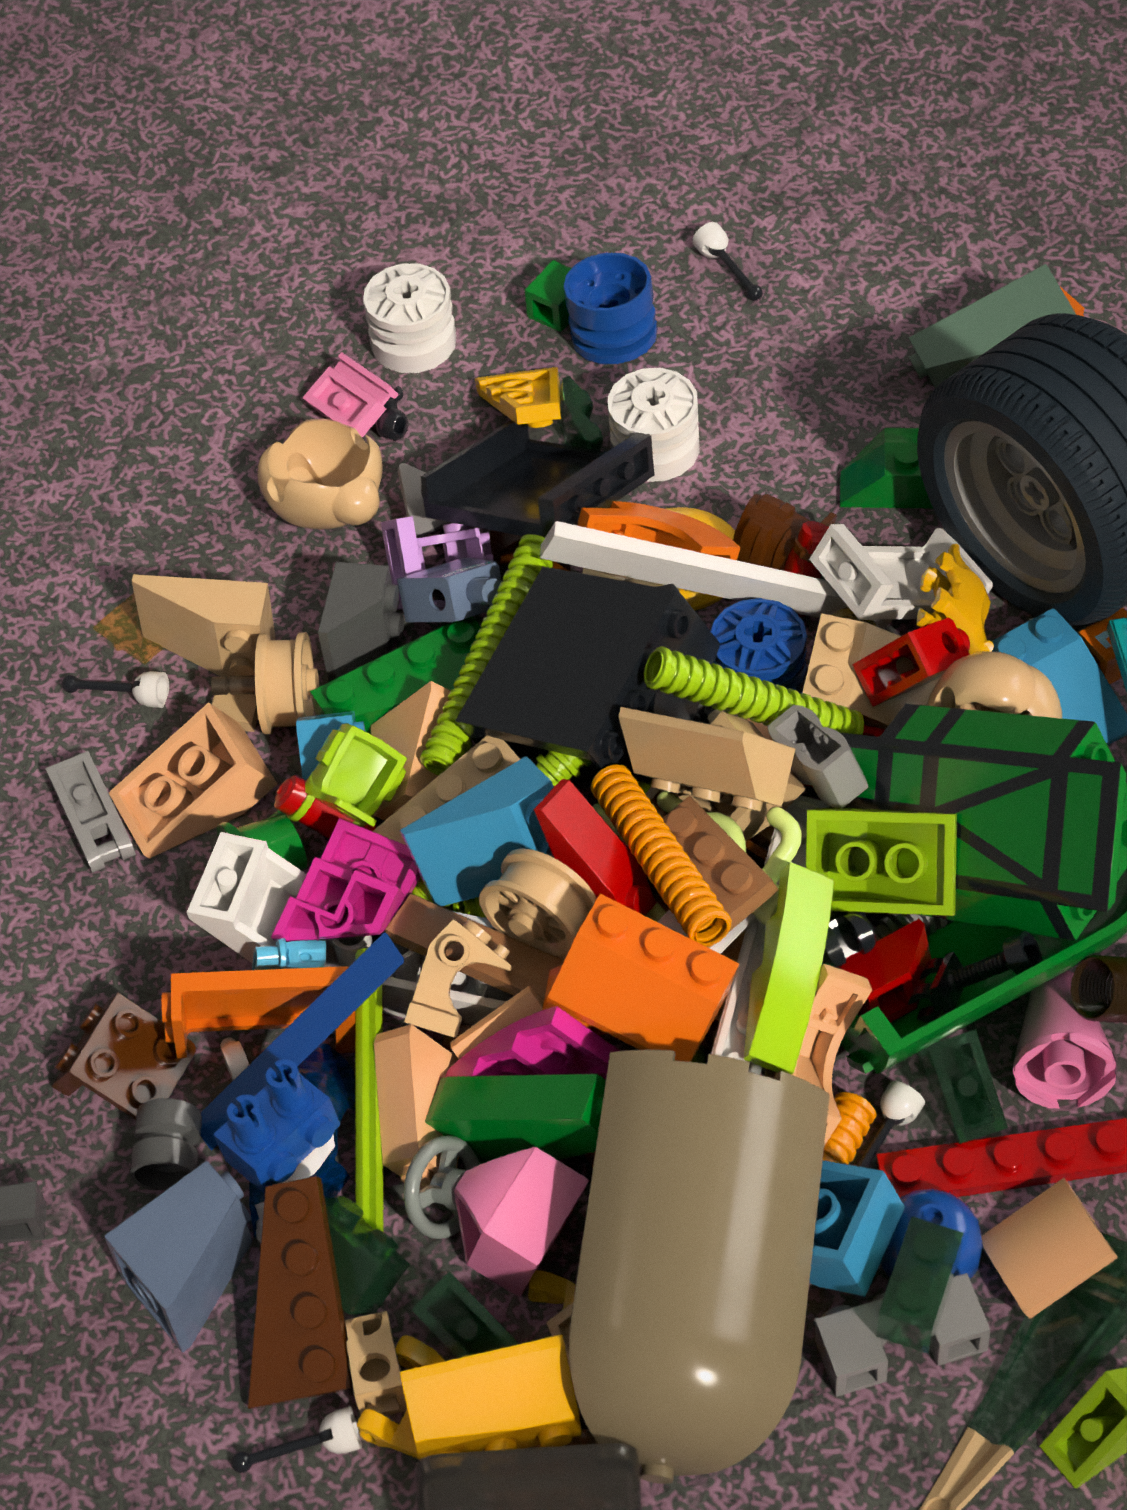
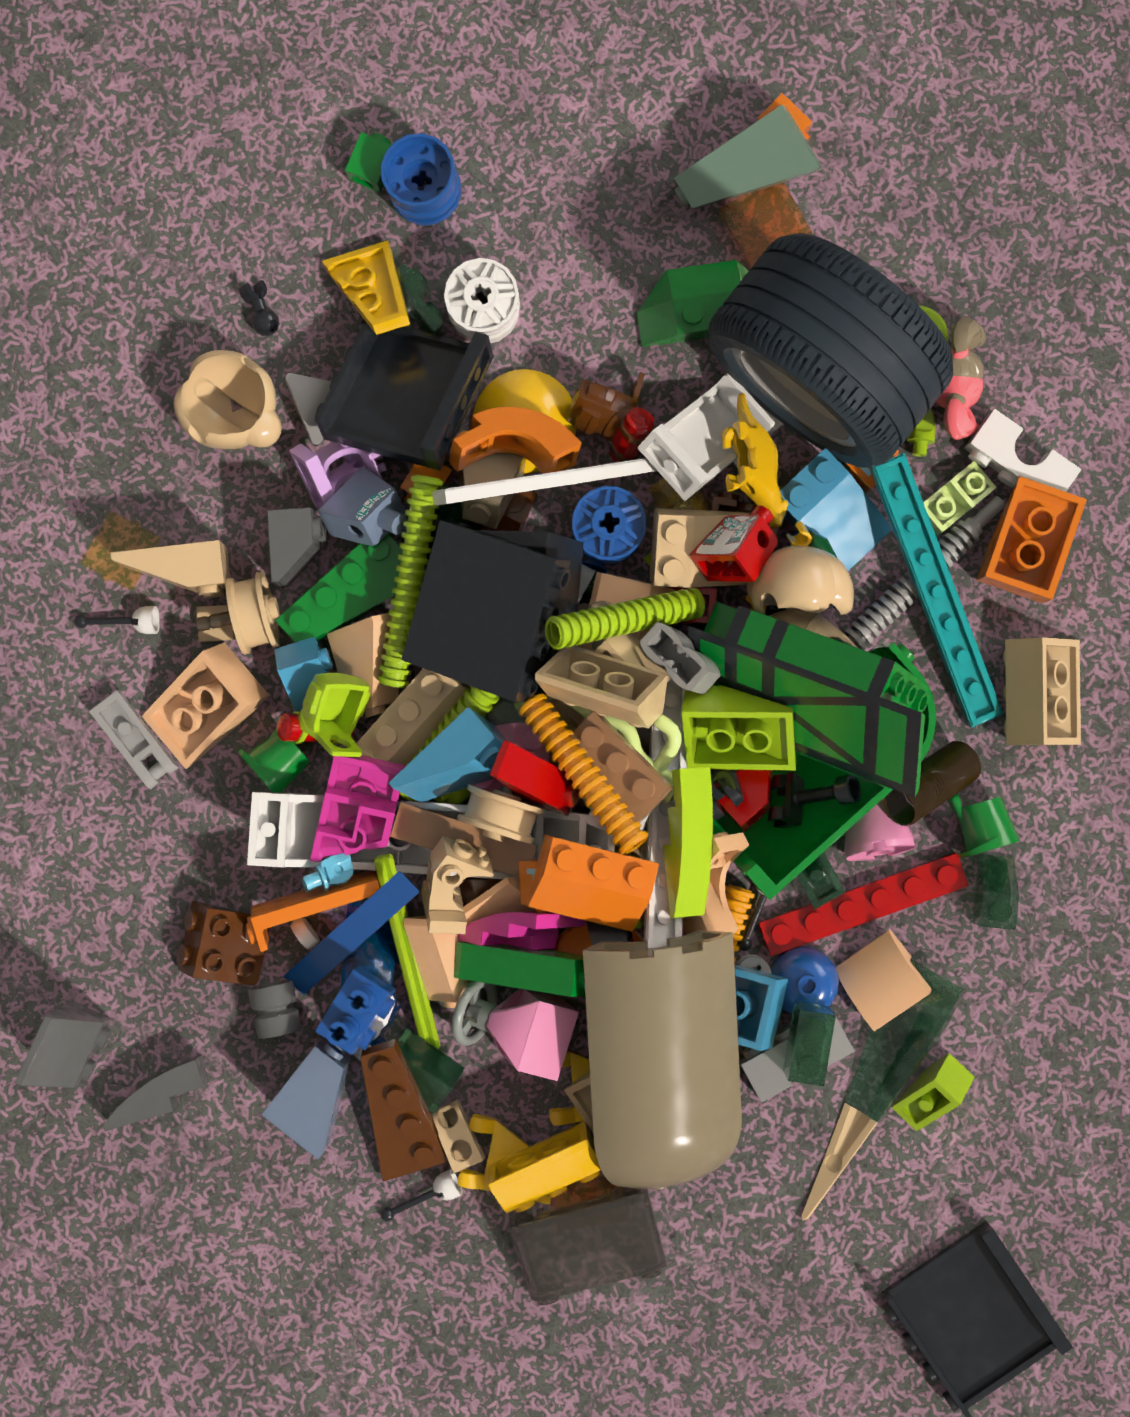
camera: 15 degrees left, 35 degrees up
(350, 395) = (225, 304): bright pink plate -> none
(410, 318) = (260, 233): white wheel -> none
(456, 1318) = (508, 1105): clear green slope -> none
(712, 243) = (489, 78): hinge -> none

